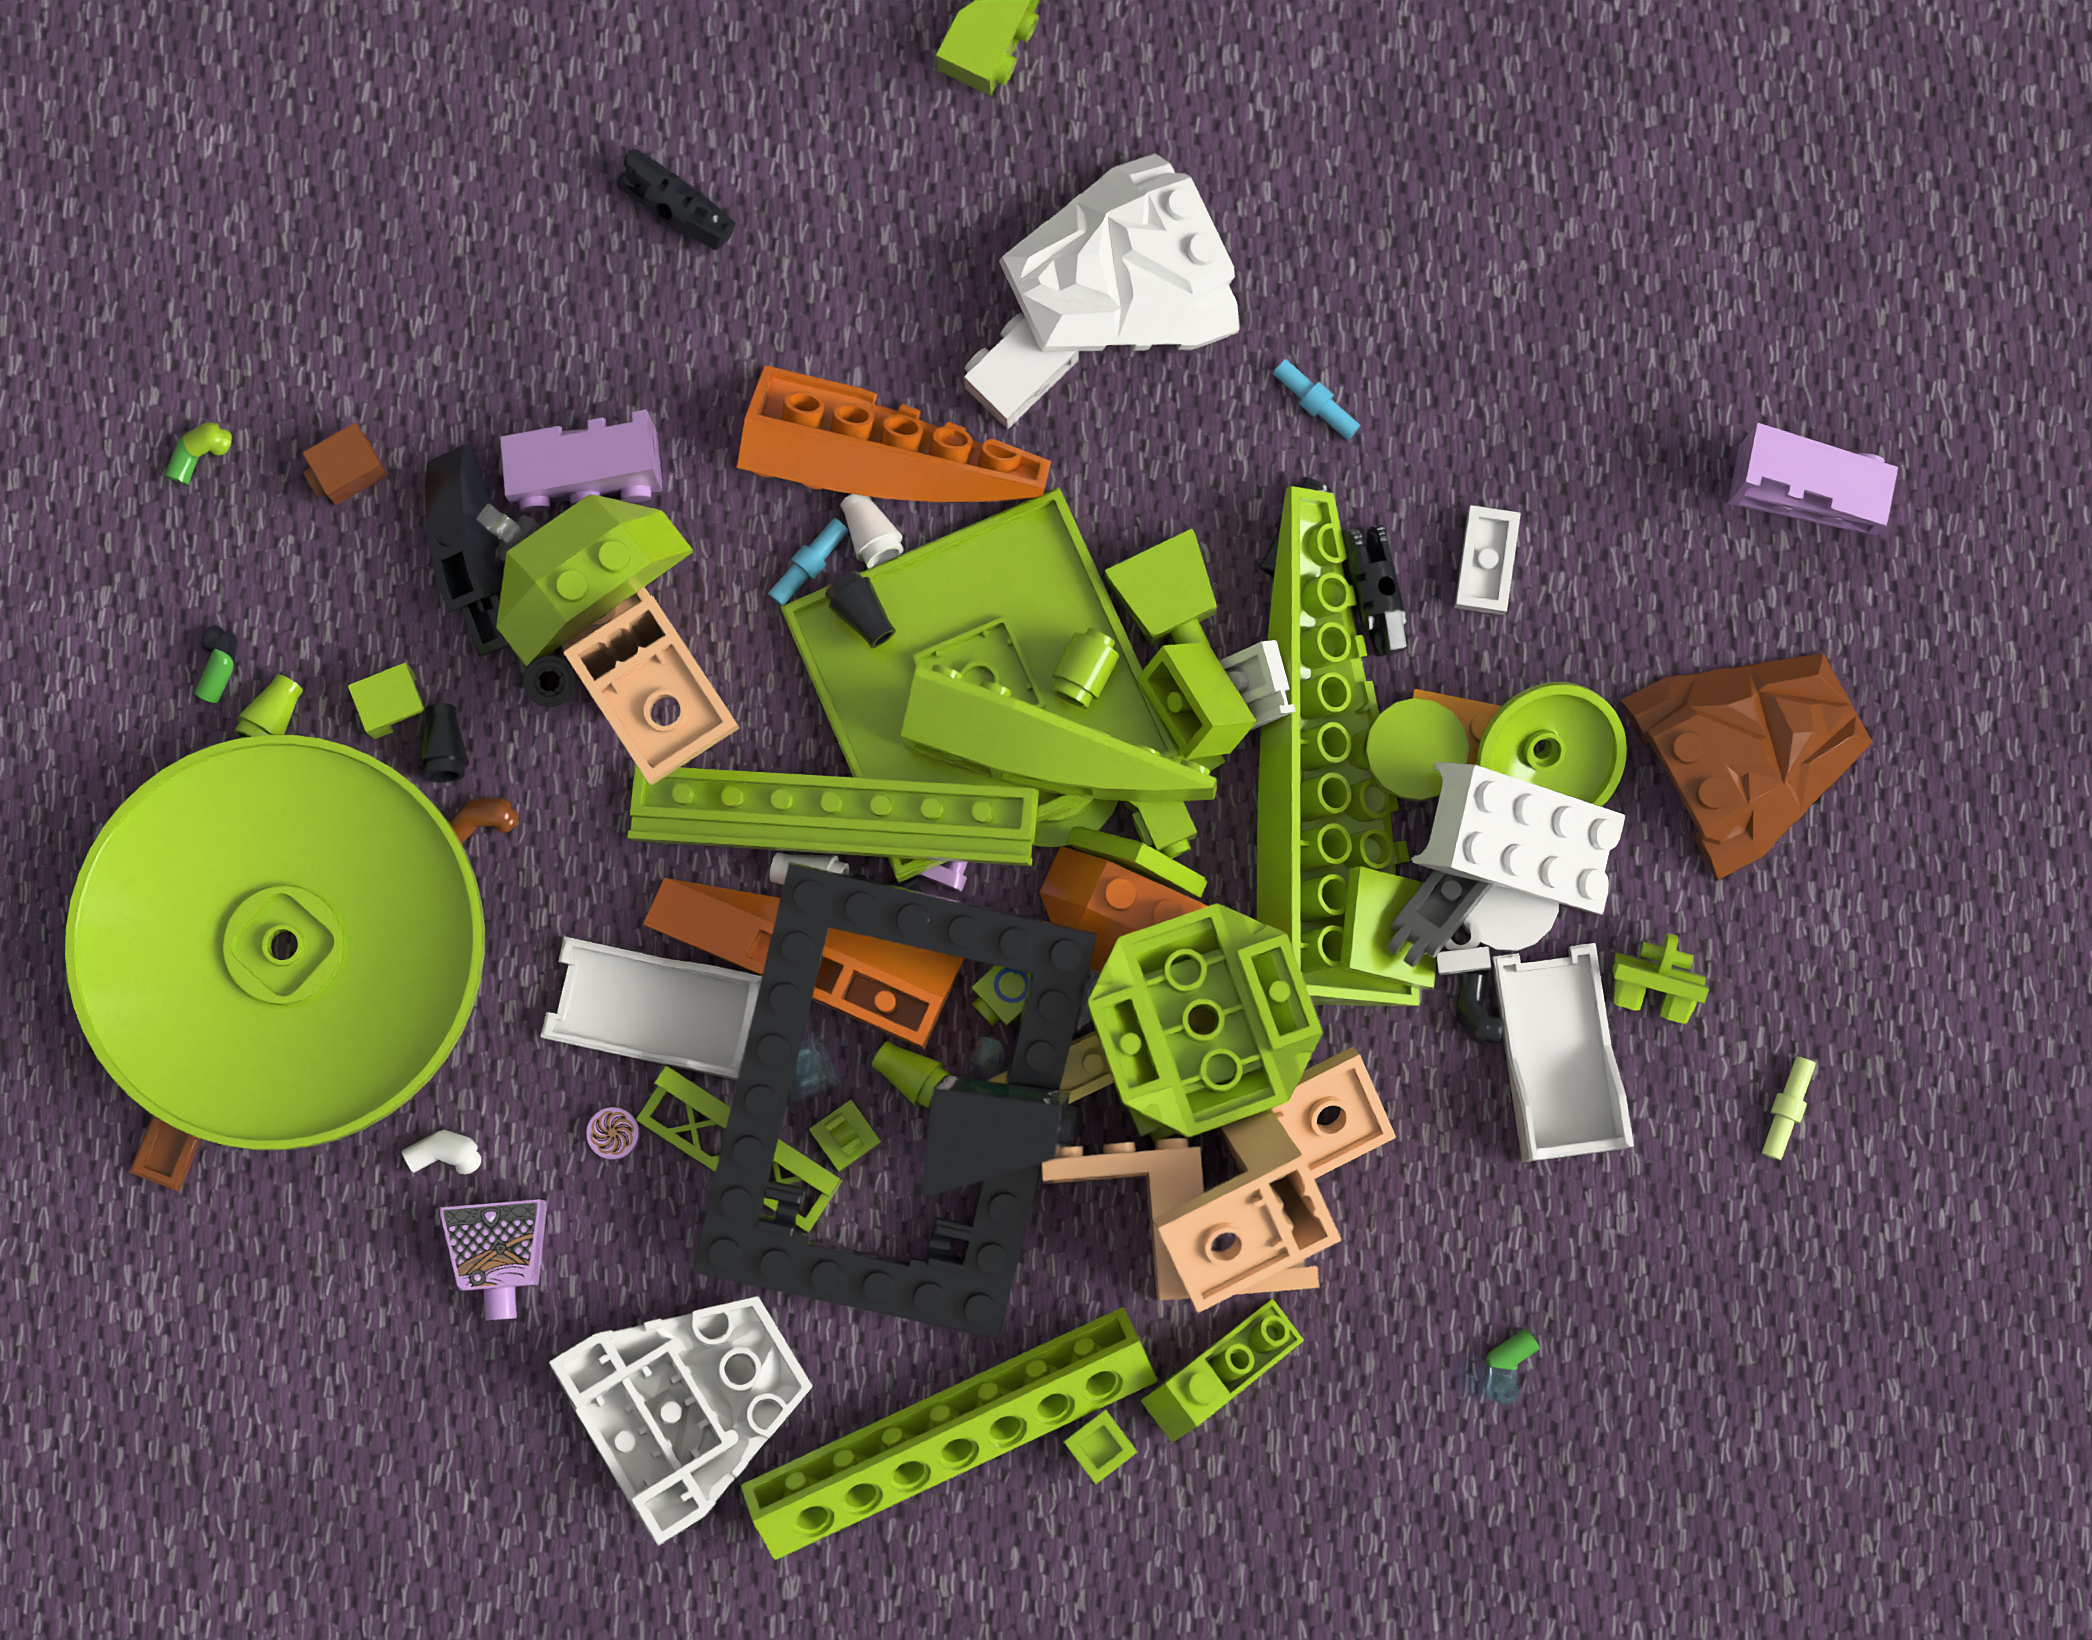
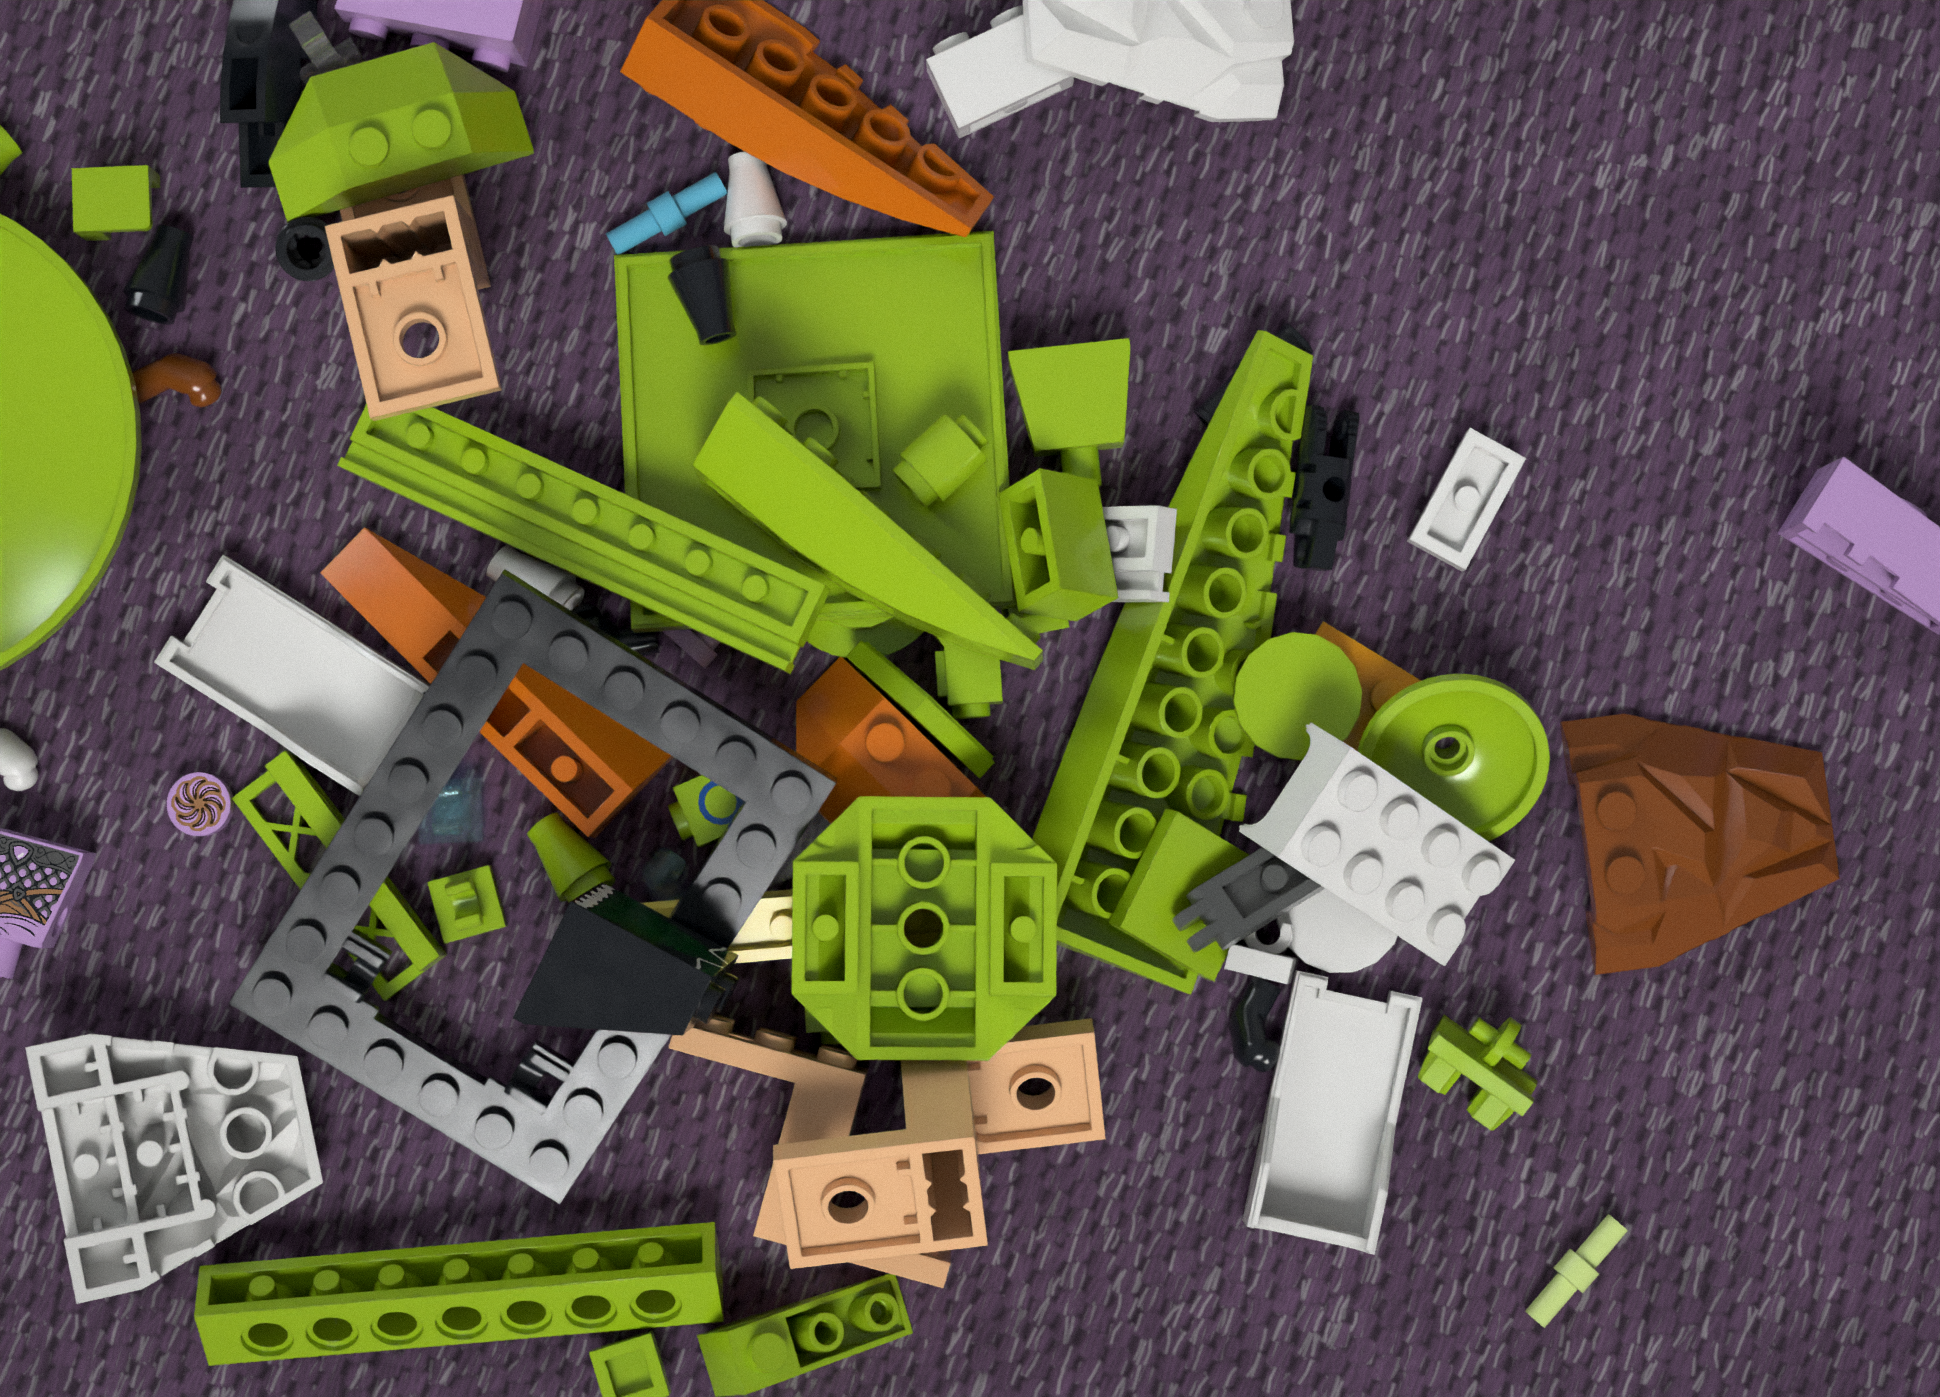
camera: 20 degrees right, 5 degrees up
(1316, 399) = (1336, 234): medium azure bar -> none

